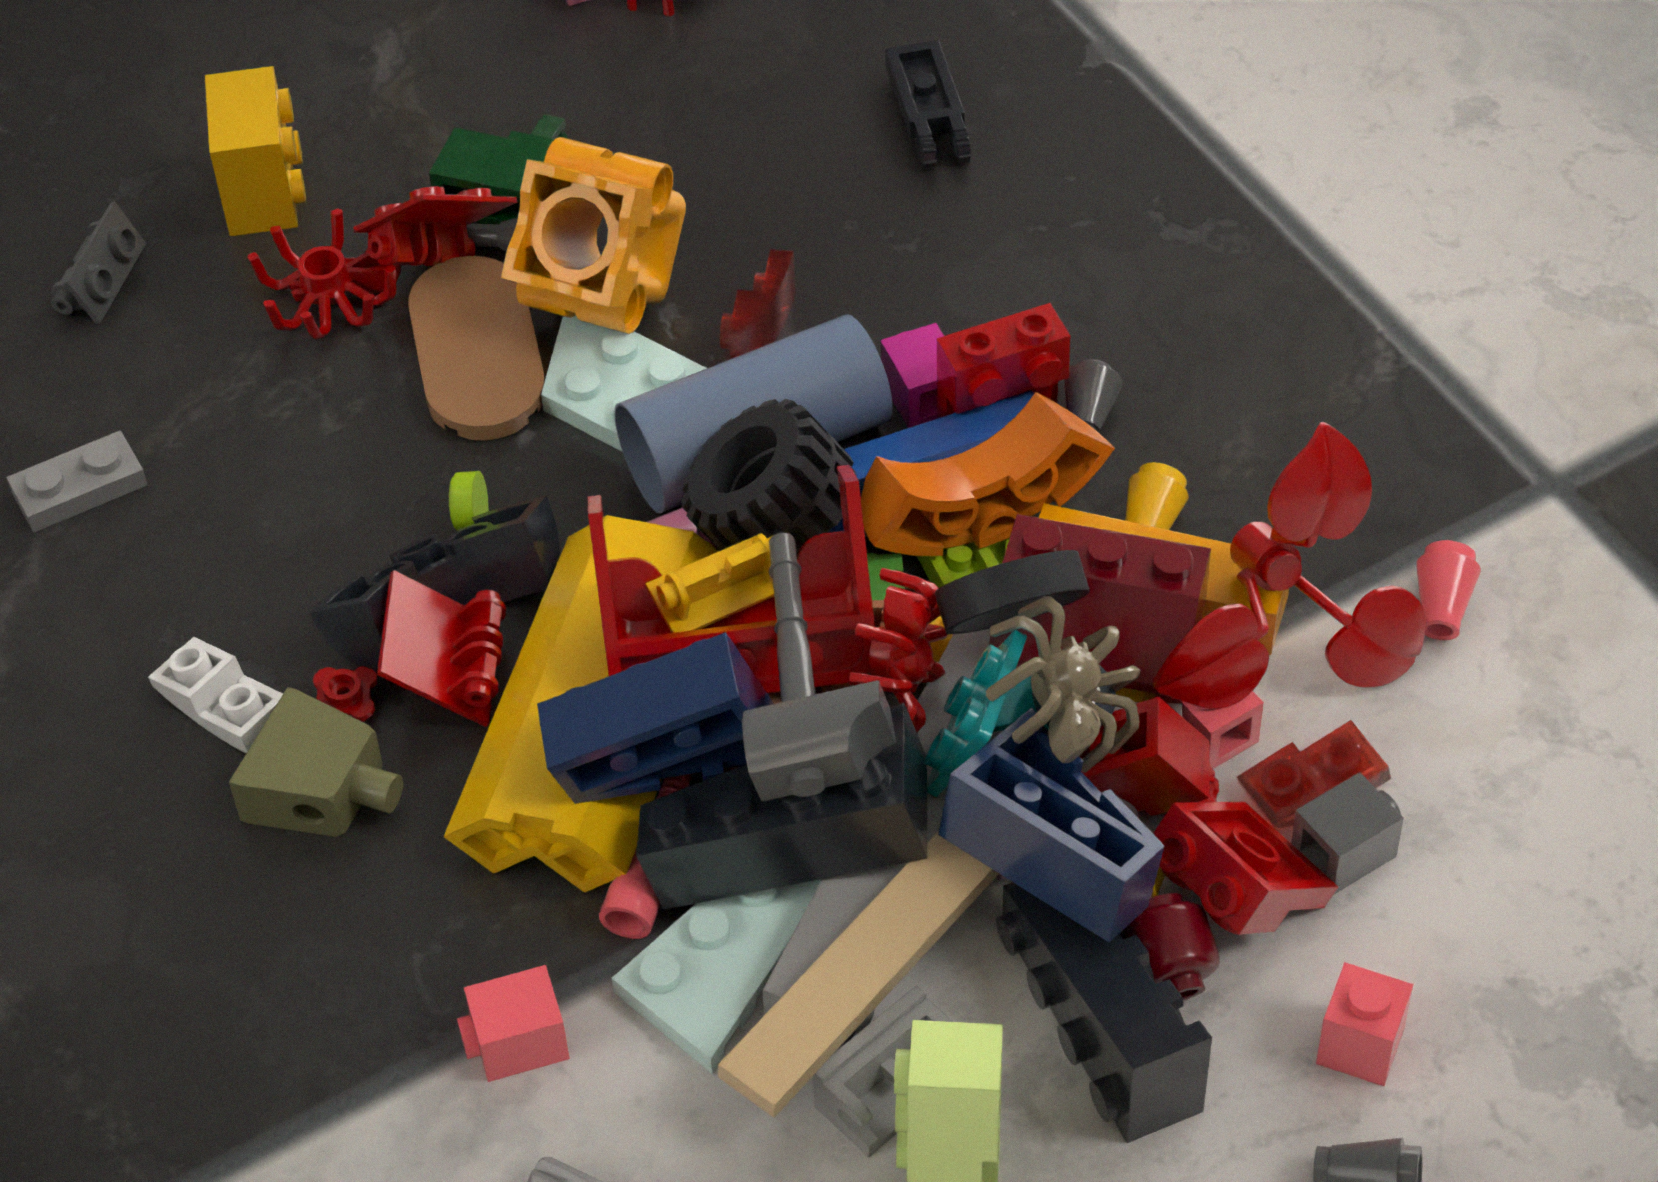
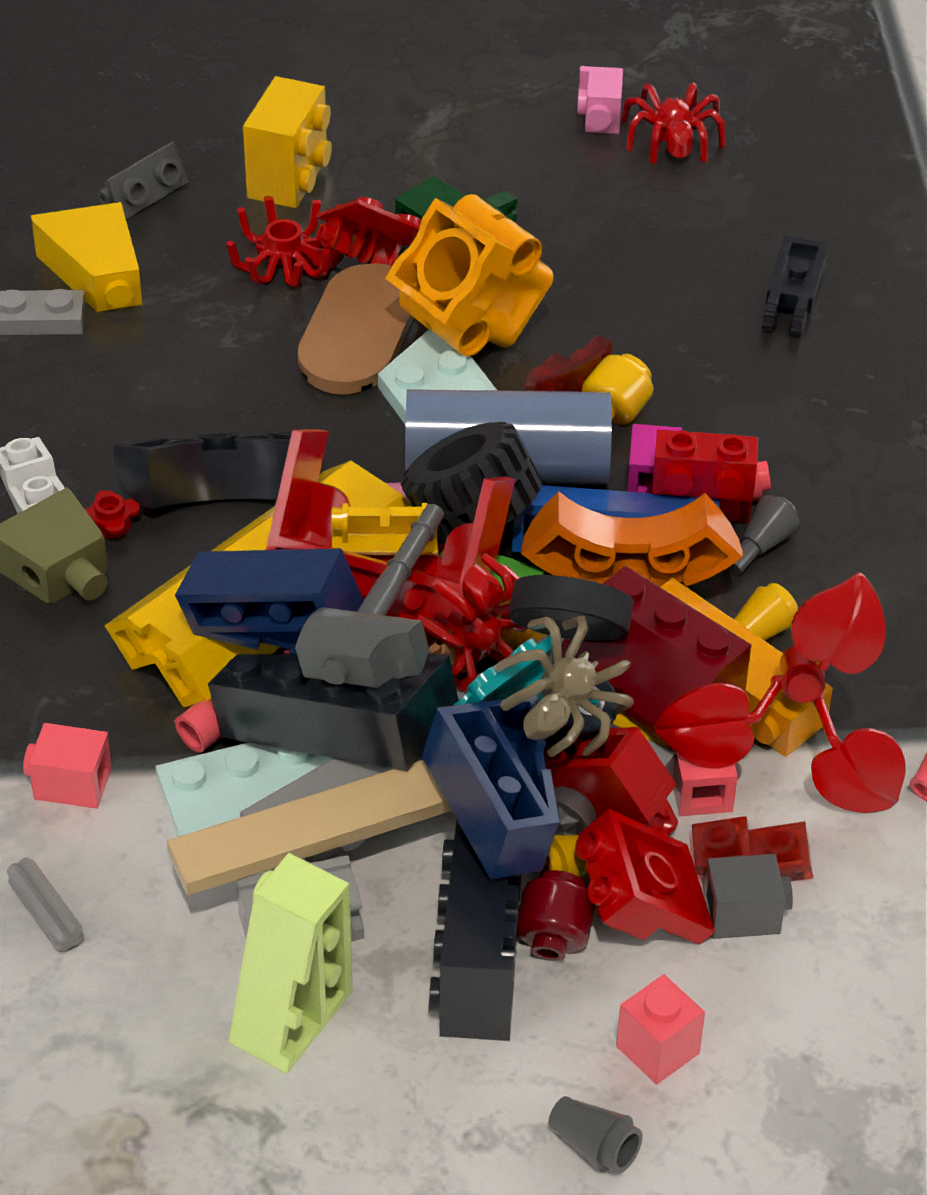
camera: 25 degrees right, 5 degrees down
(101, 381) = (91, 254): none -> yellow slope
(443, 646) = (189, 503): red hinge -> none
(467, 498) = (278, 416): lime tile -> none
(822, 294) = (626, 381): none -> yellow head

